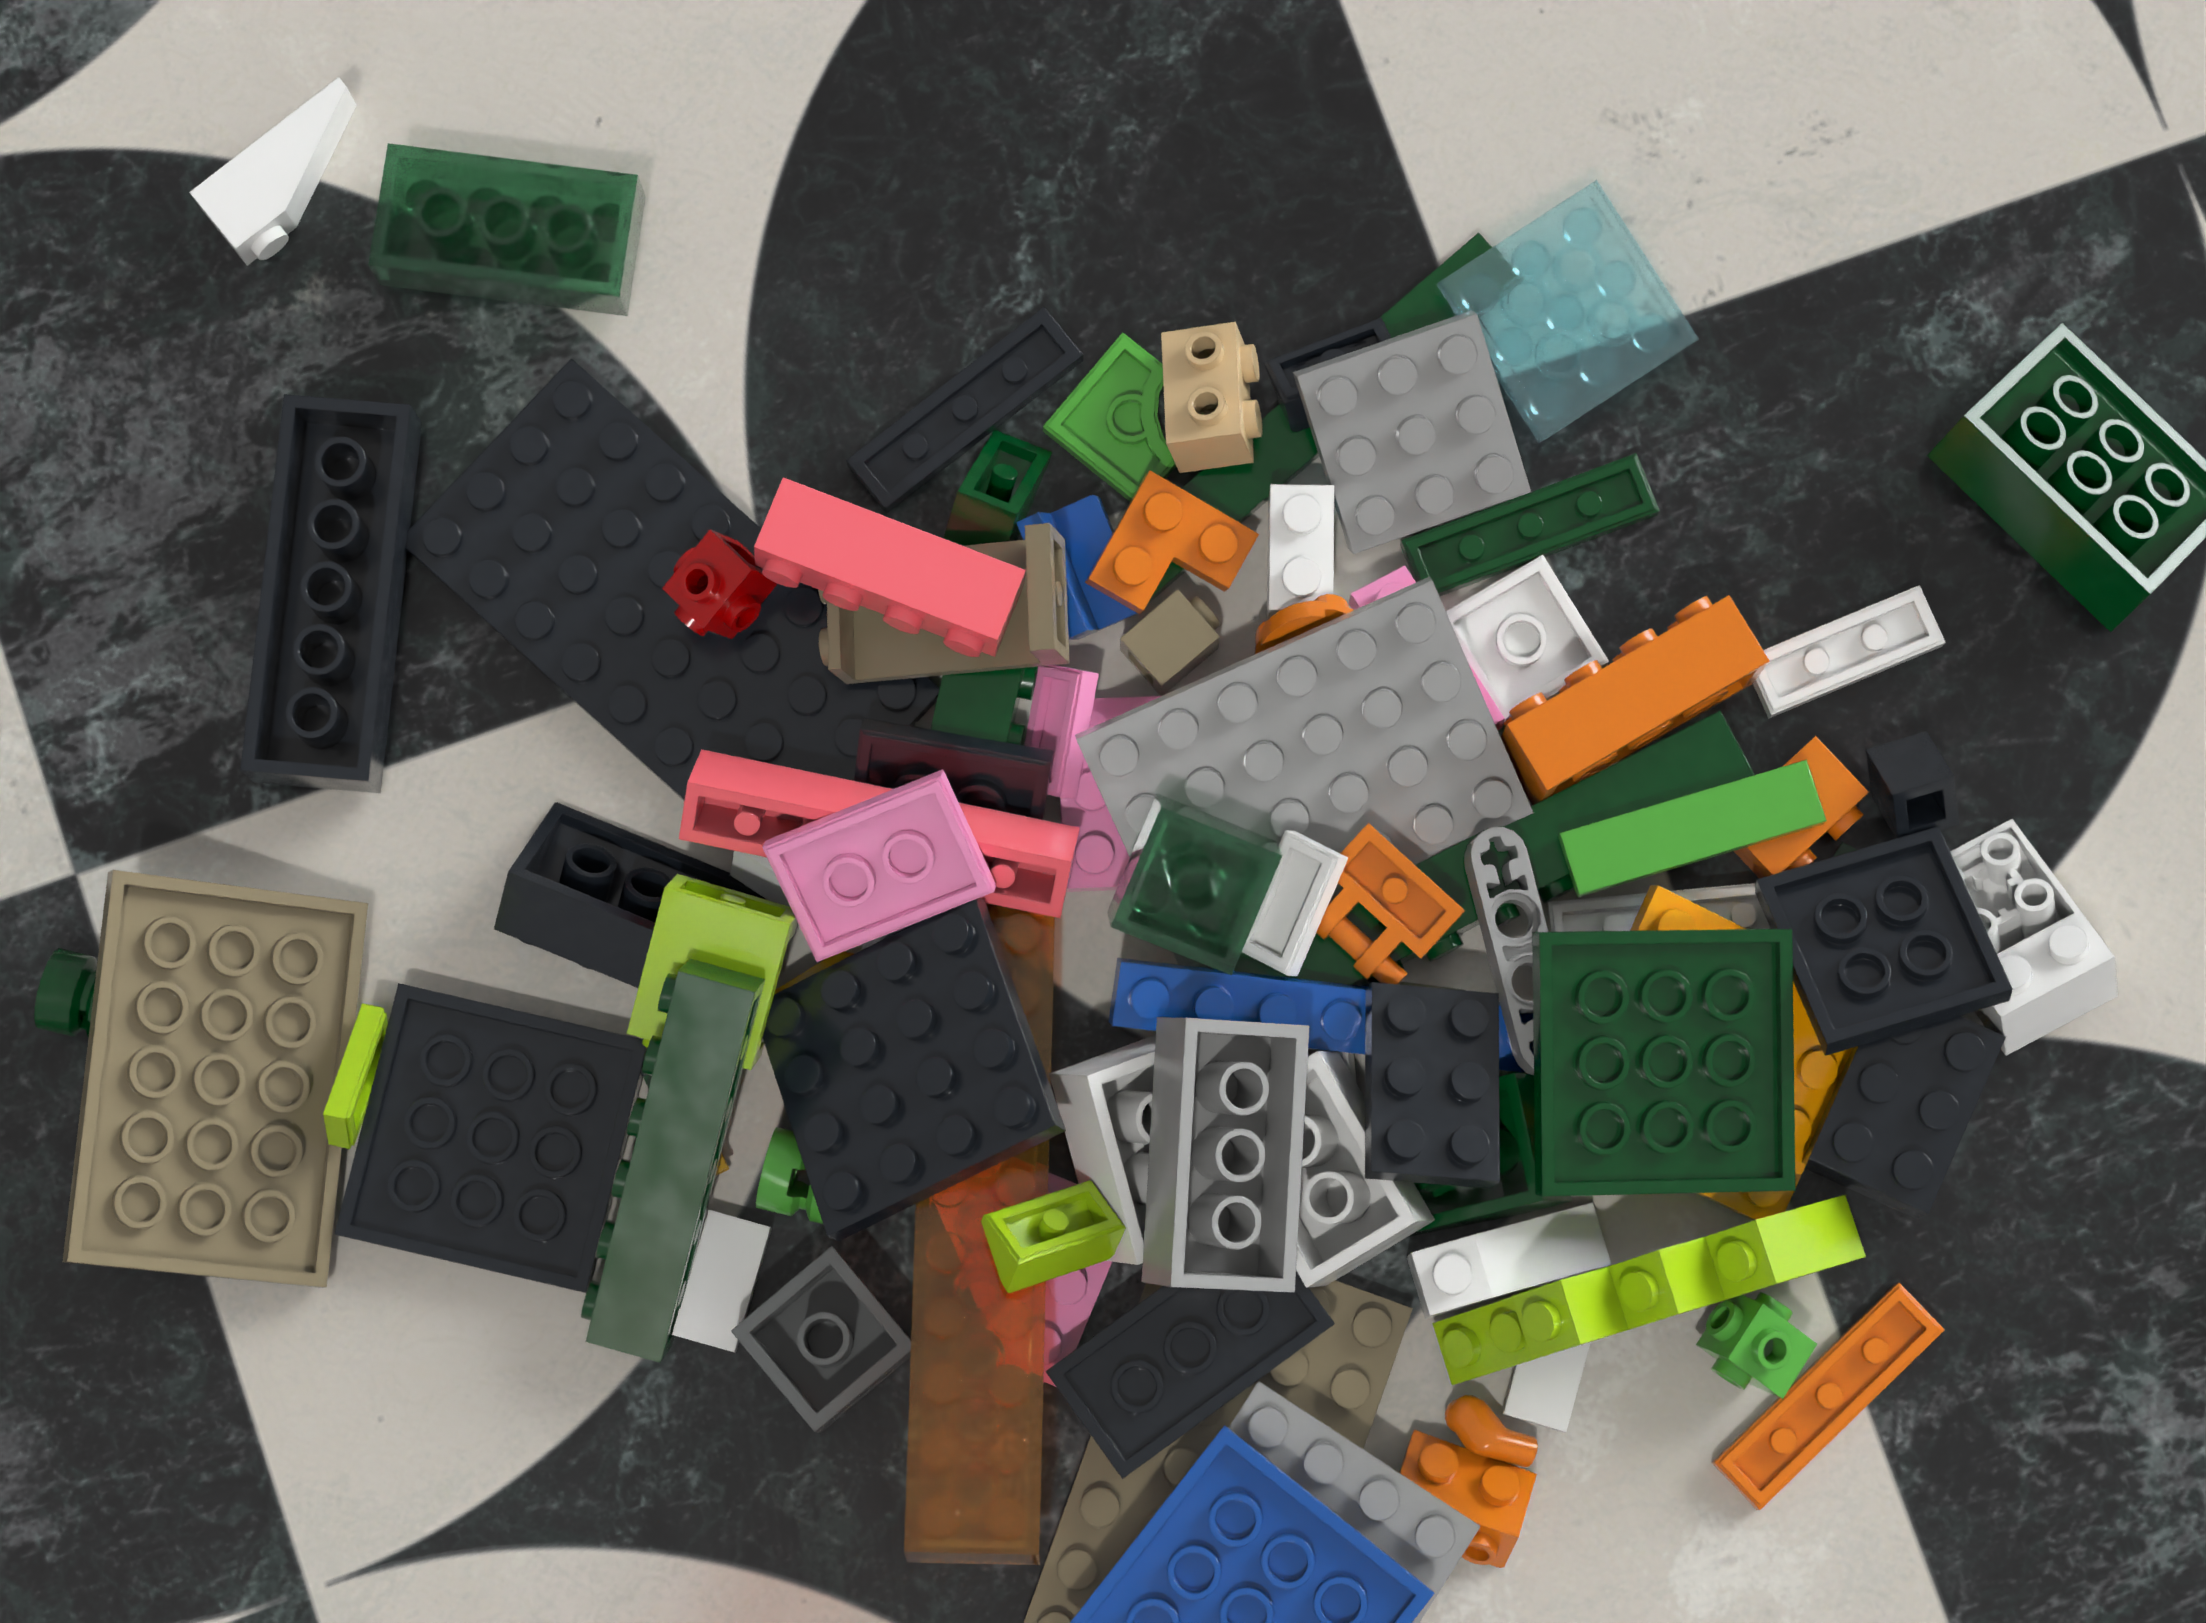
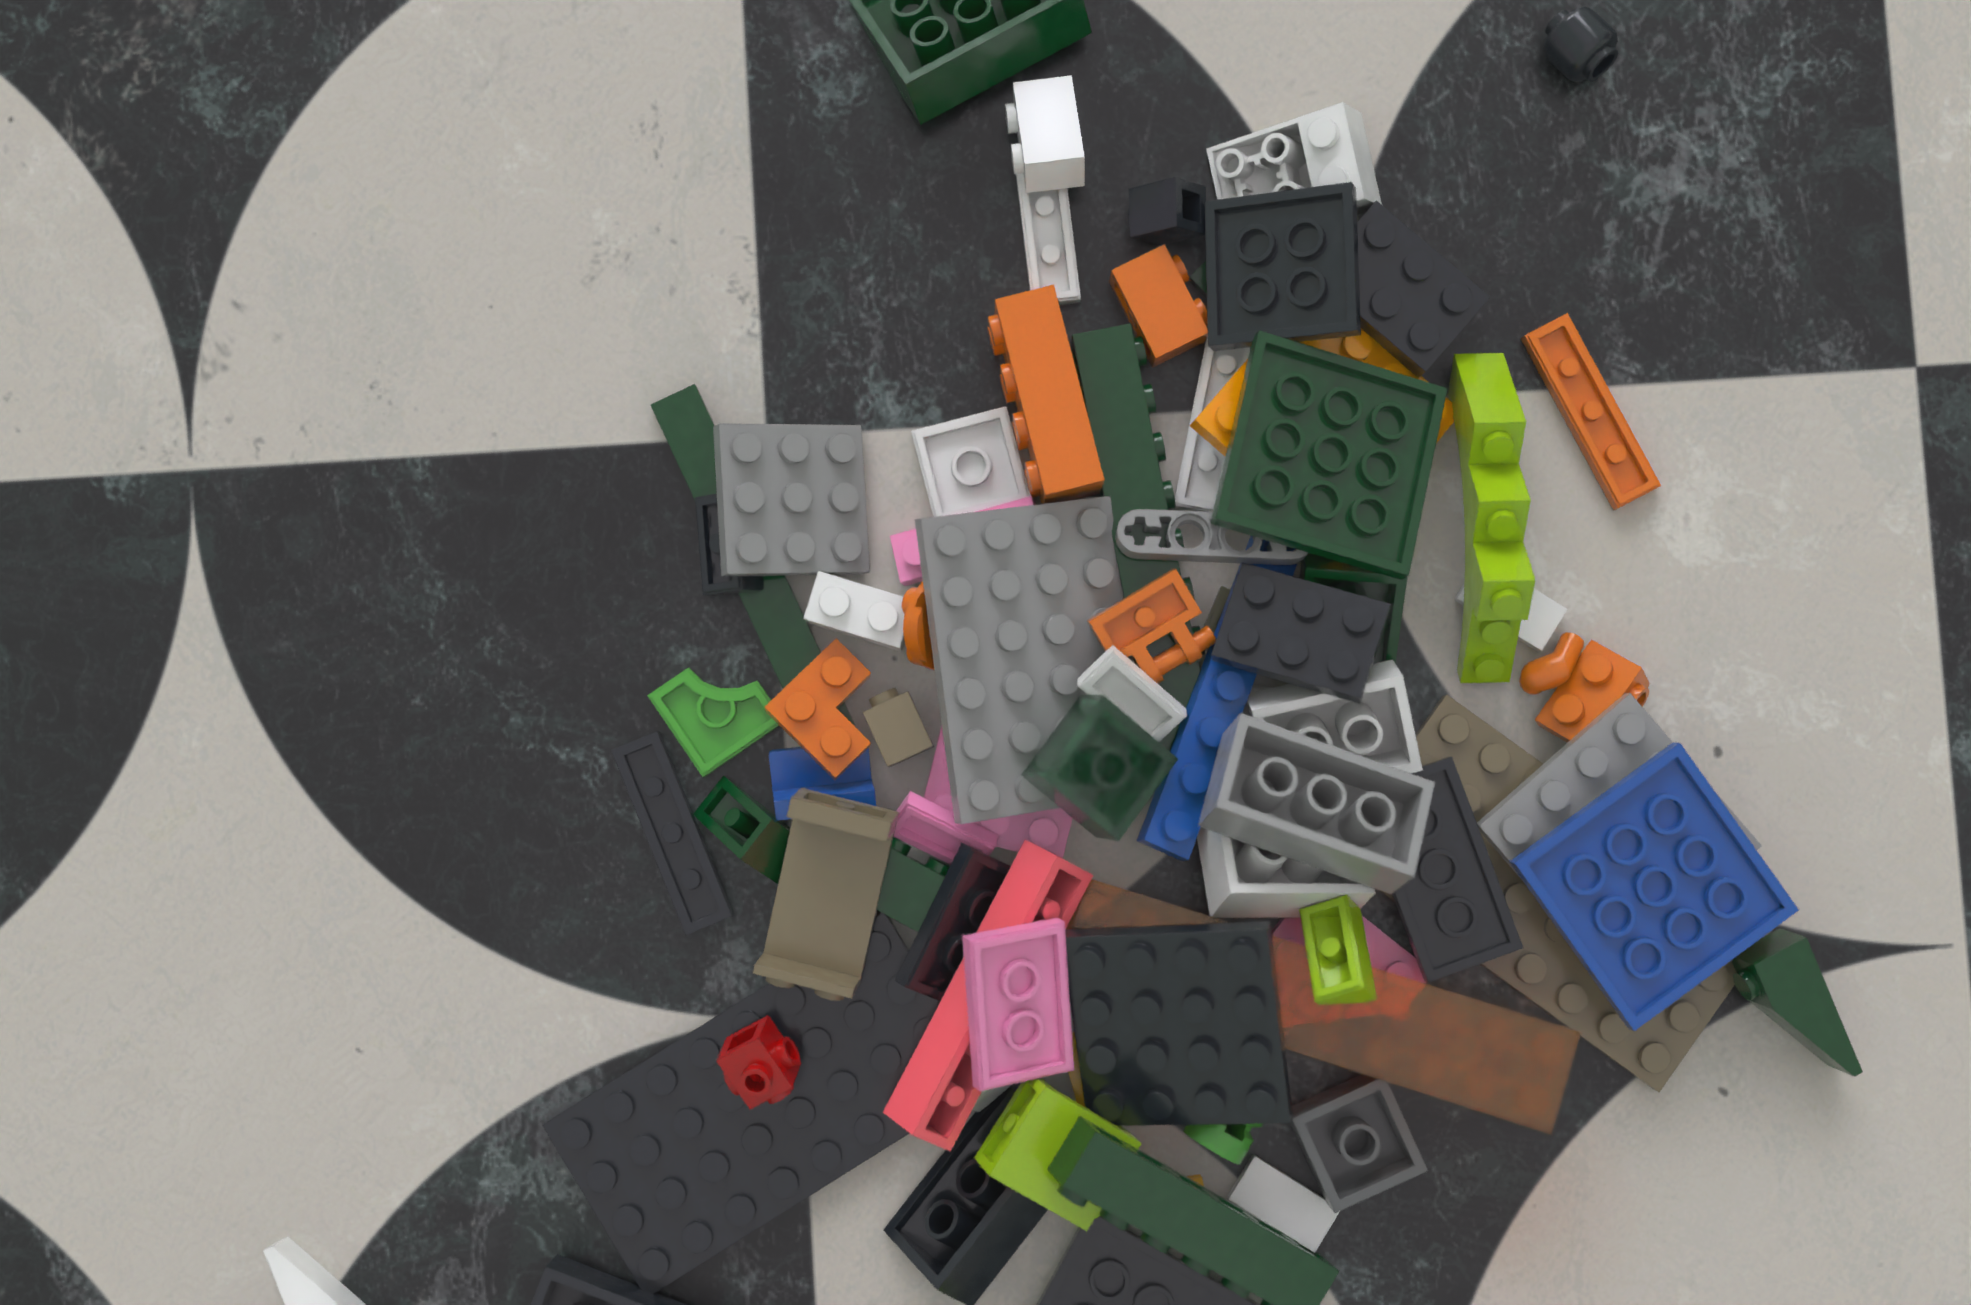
camera: 75 degrees left, 5 degrees up
(507, 229) = (425, 1150): clear green brick -> none
(888, 569) = (787, 933): coral brick -> none
(1209, 398) = (719, 645): tan brick -> none
(1508, 1260) = (1433, 618): white slope -> none
(1531, 526) = (886, 434): dark green tile -> none
(1569, 311) = (732, 354): clear light blue plate -> none
(1692, 828) = (1157, 382): bright green tile -> none
(1756, 1344) = (1544, 460): bright green brick -> none
(1961, 611) = (1048, 134): none -> white brick

